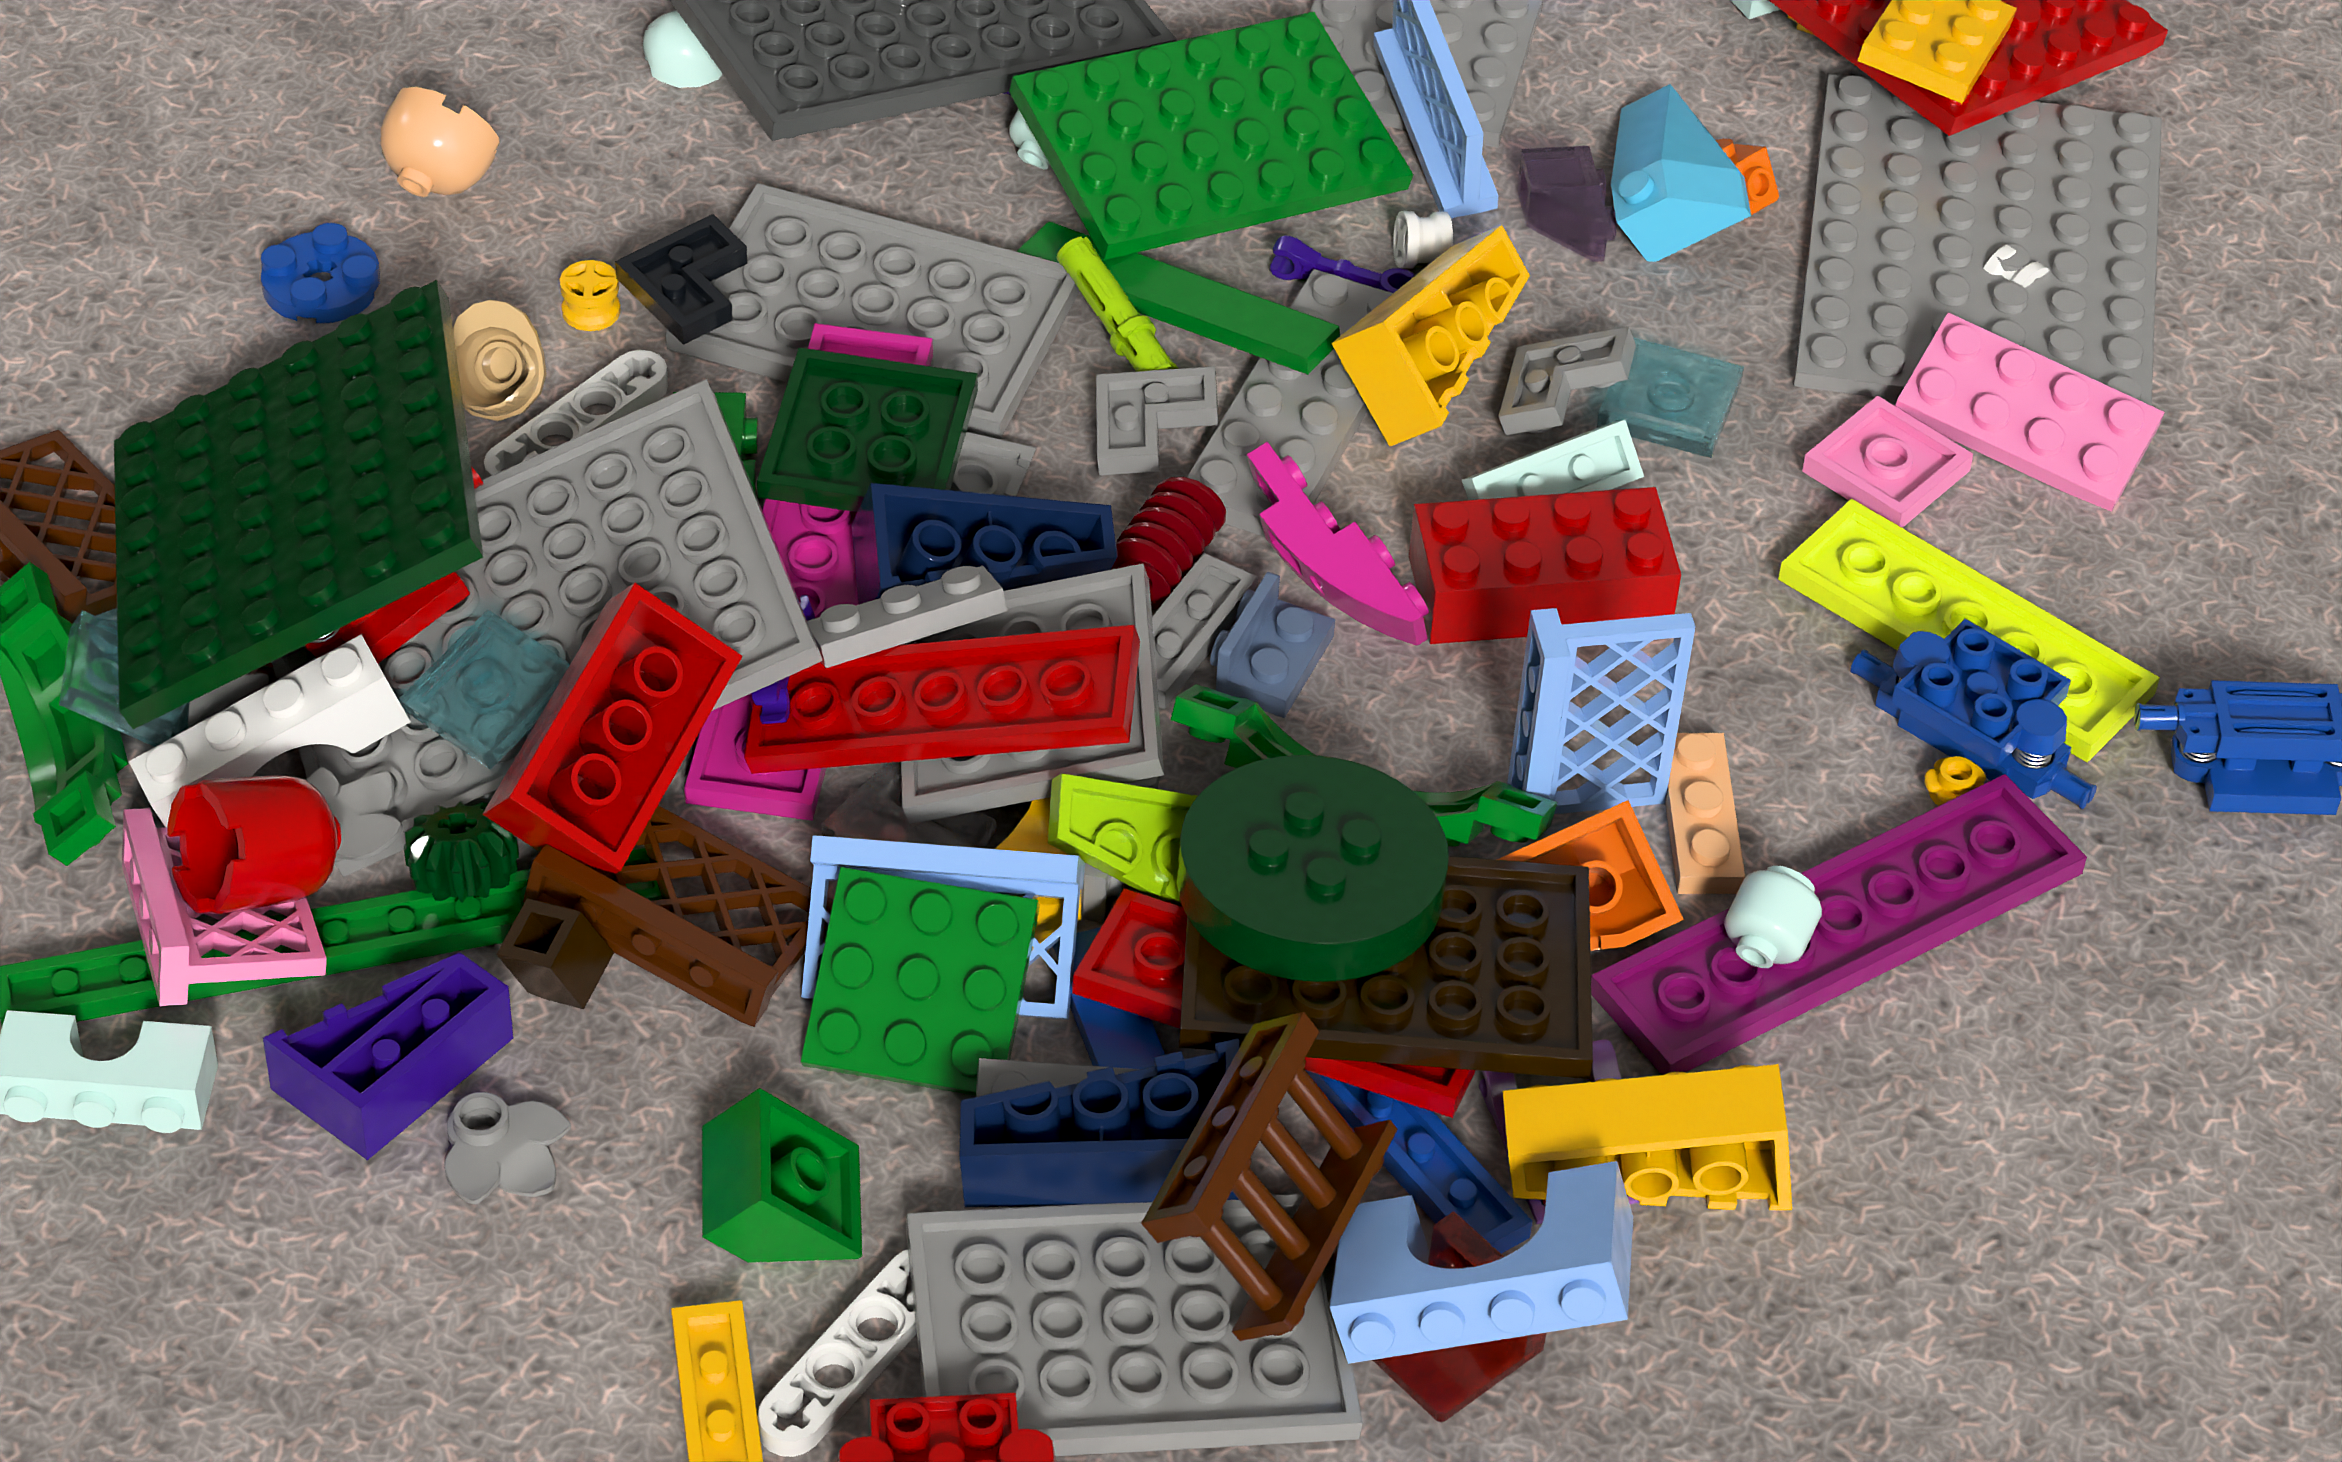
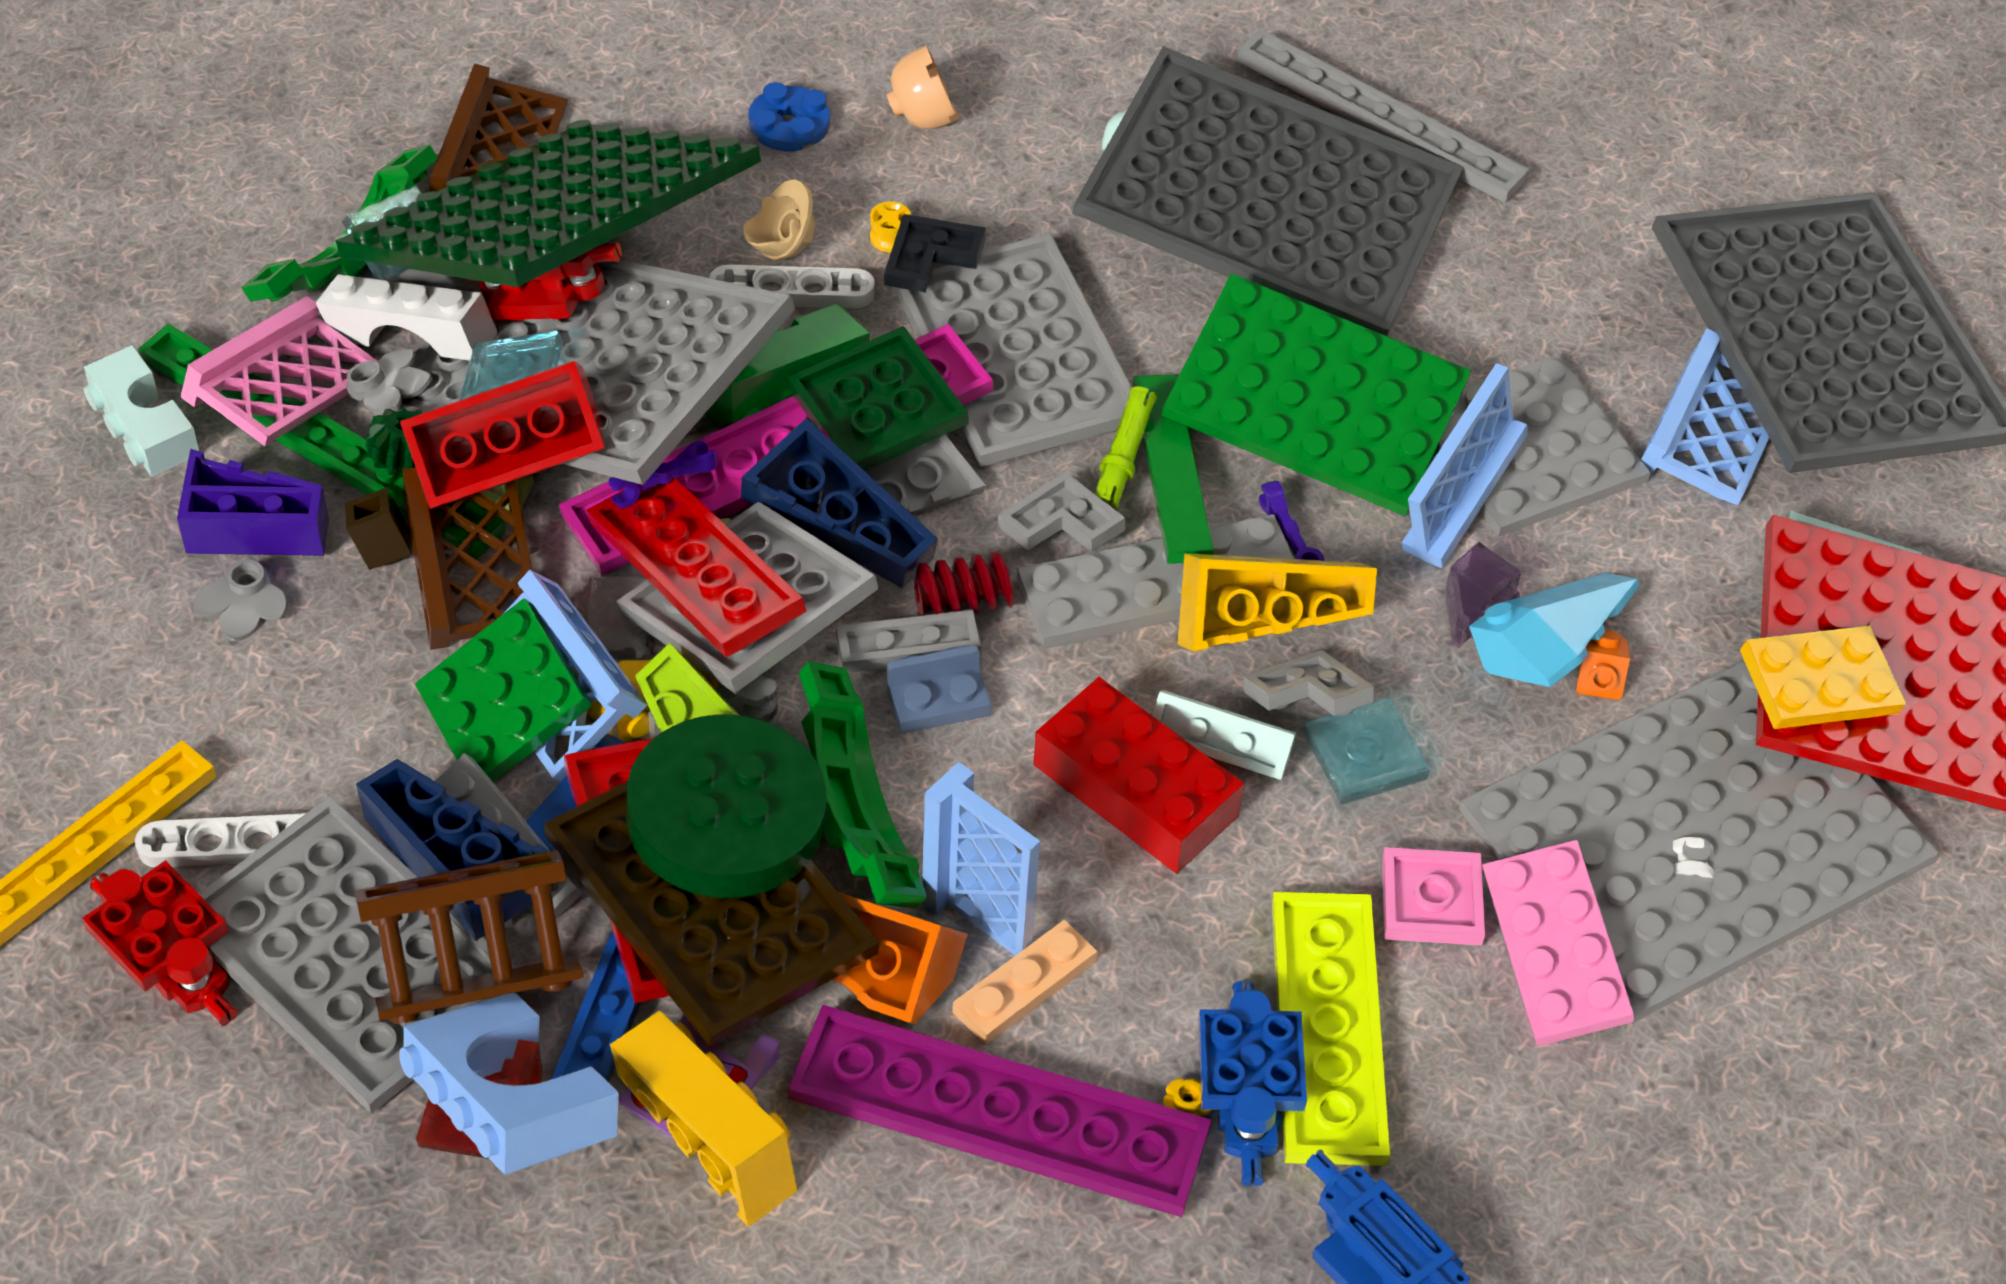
camera: 50 degrees right, 5 degrees up
(252, 842) = (308, 354): red cylinder -> none
(779, 1184) = (313, 733): green slope -> none
(906, 614) = (738, 502): light grey plate -> none
(1334, 562) = (1024, 674): dark pink slope -> none
(1420, 238) = (1356, 545): white wheel -> none
(1773, 916) = (939, 1063): light aqua head -> none

